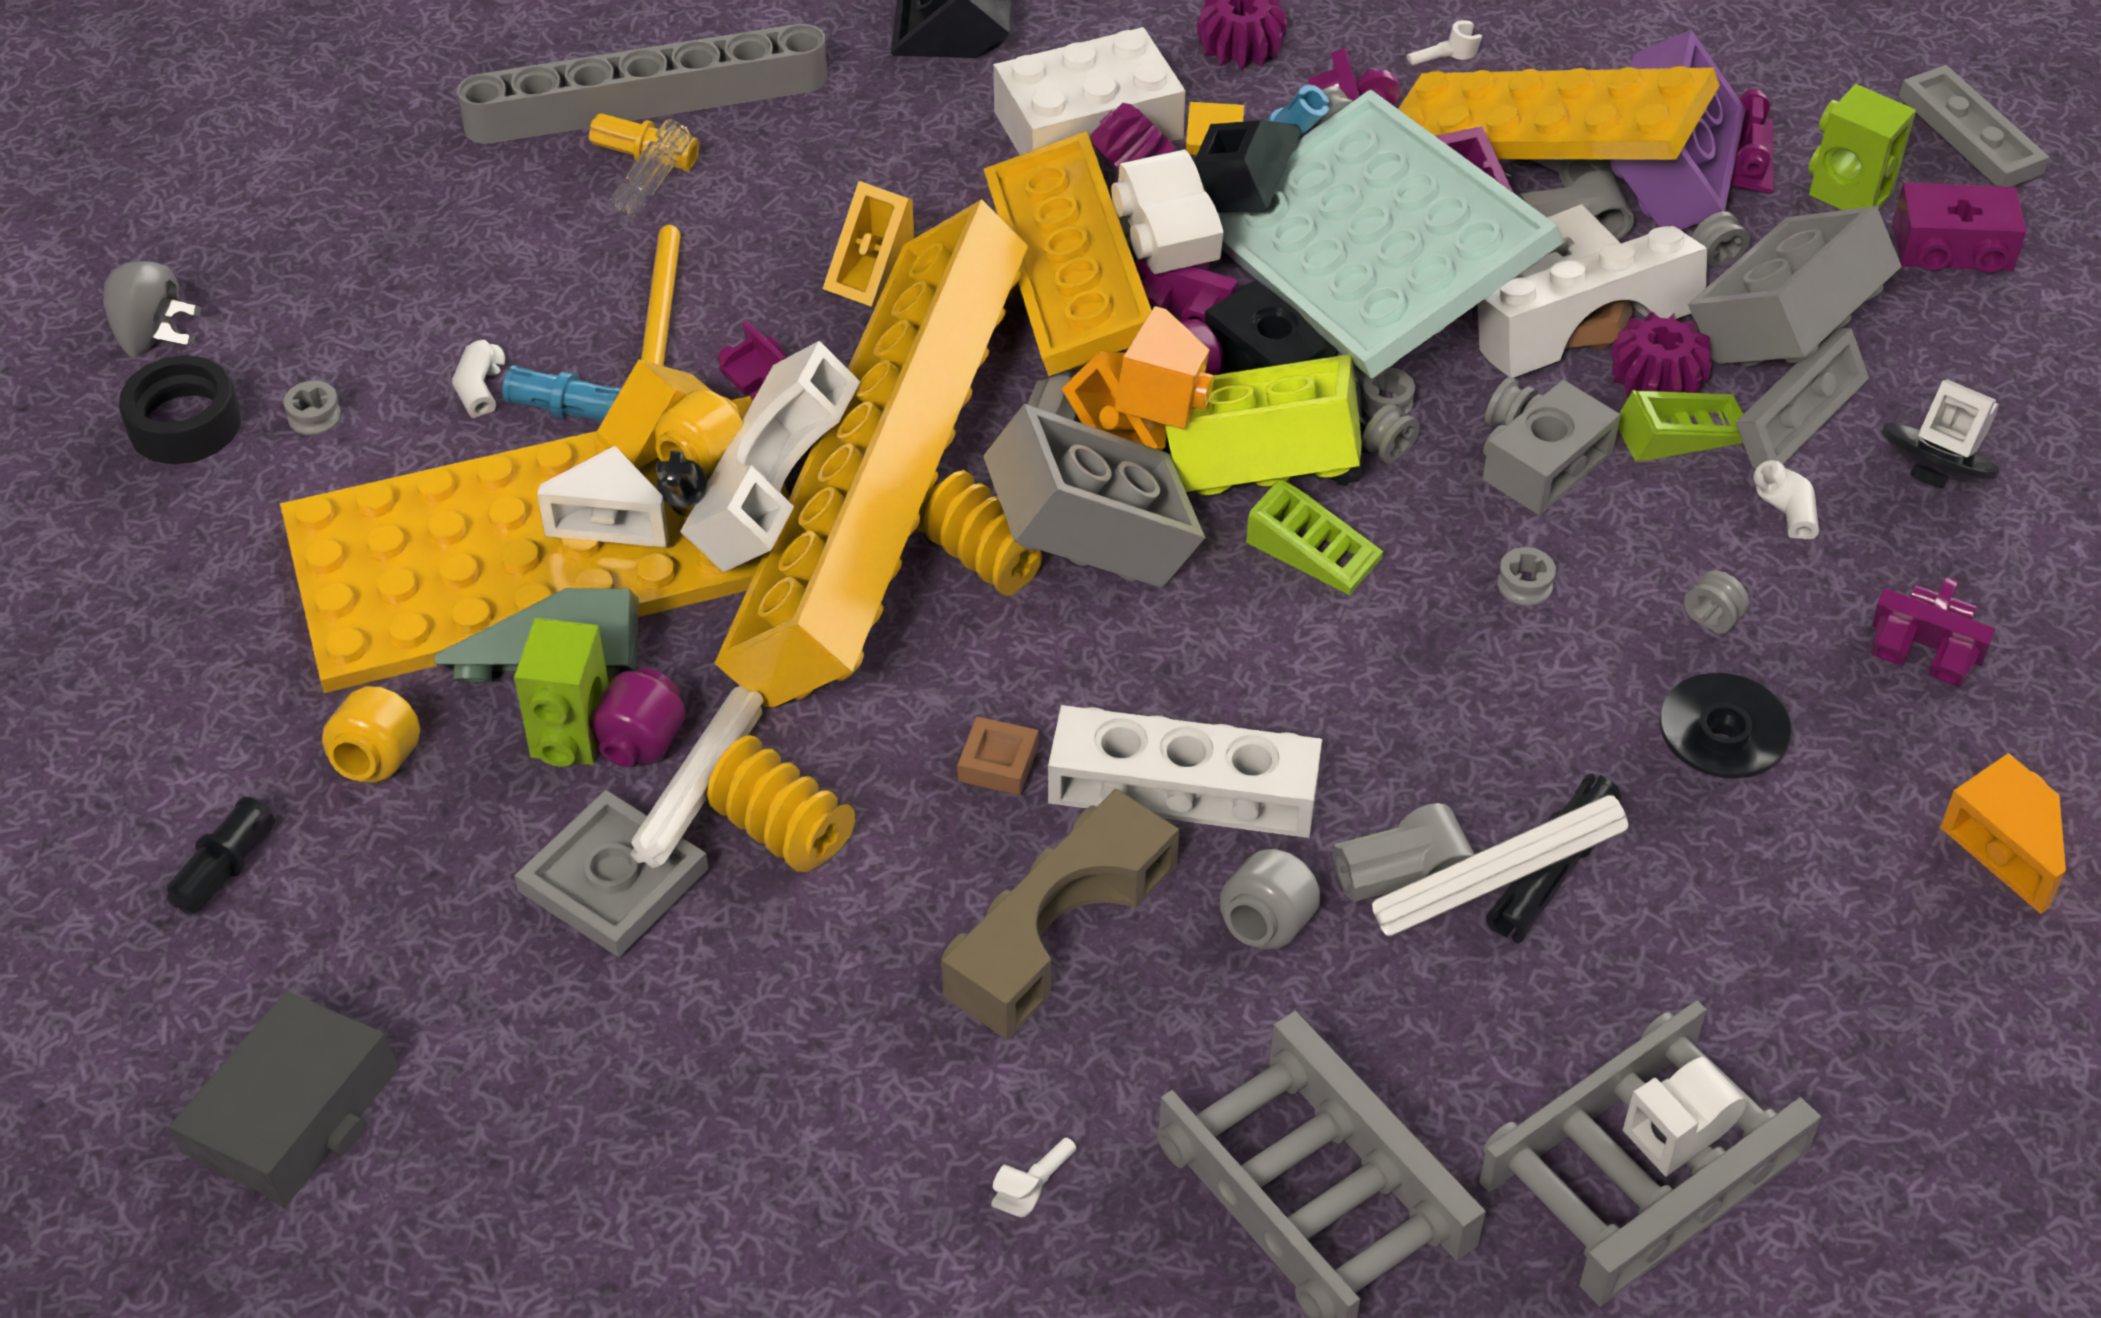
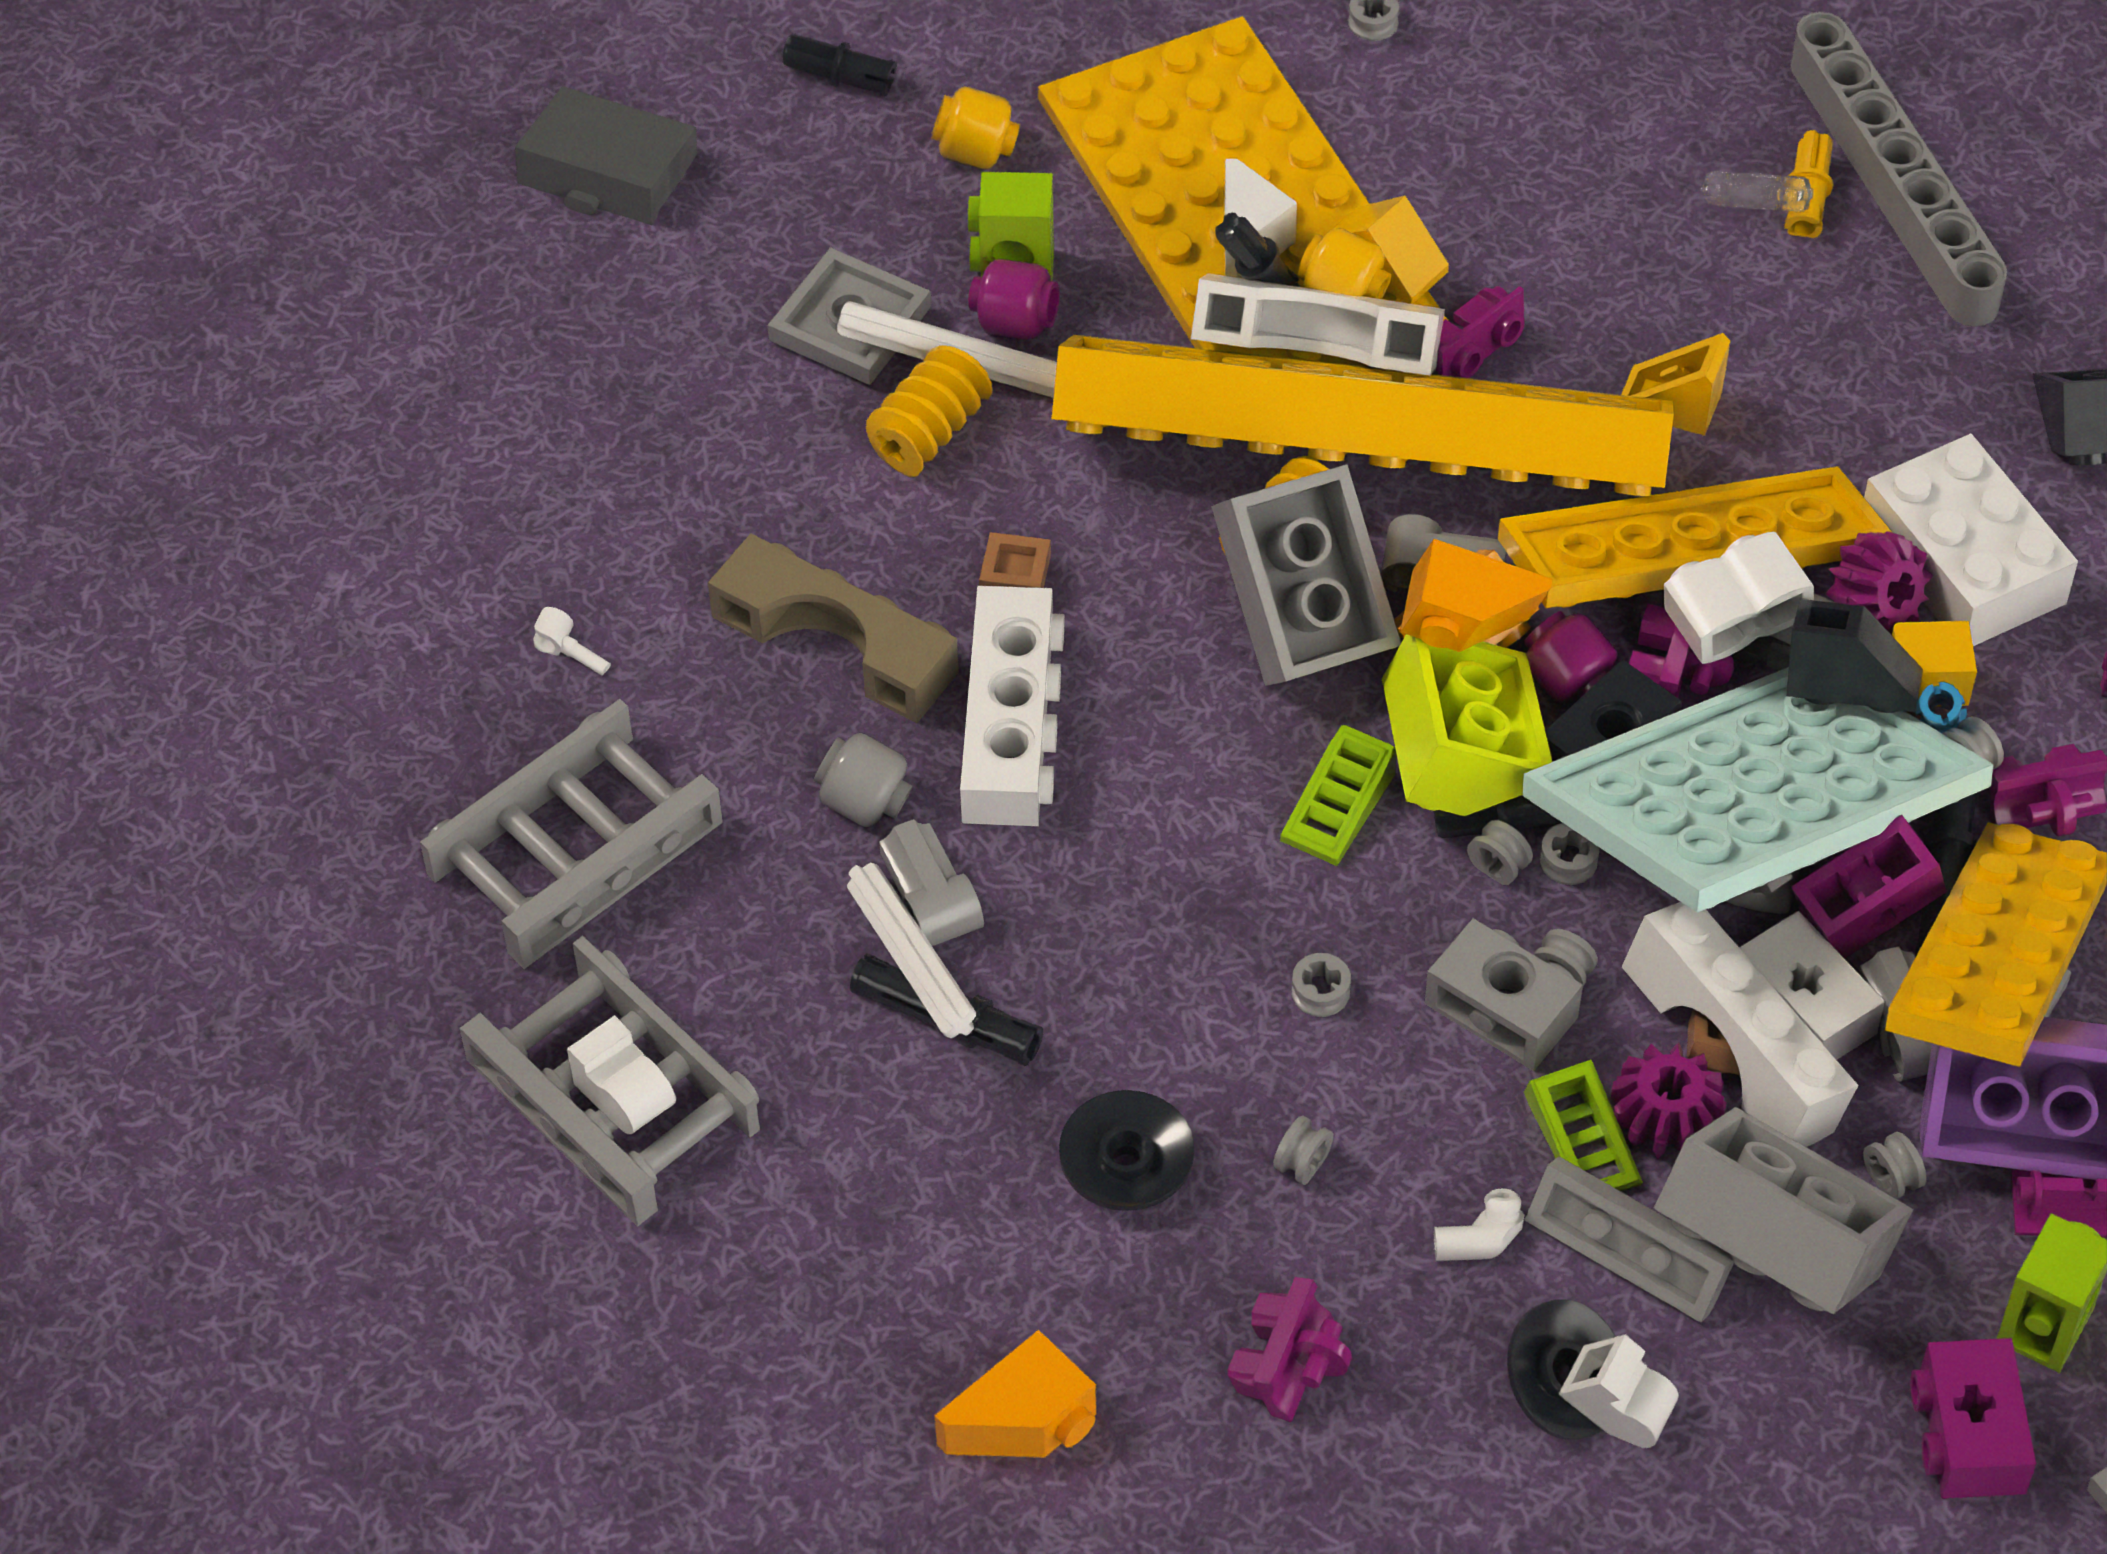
camera: 85 degrees right, 5 degrees up
(468, 381) = (1435, 116): white arm -> none
(503, 643) = (1099, 239): sand green slope -> none
(558, 393) = (1427, 183): dark azure pin -> none
(661, 295) = (1558, 239): yellow piece -> none

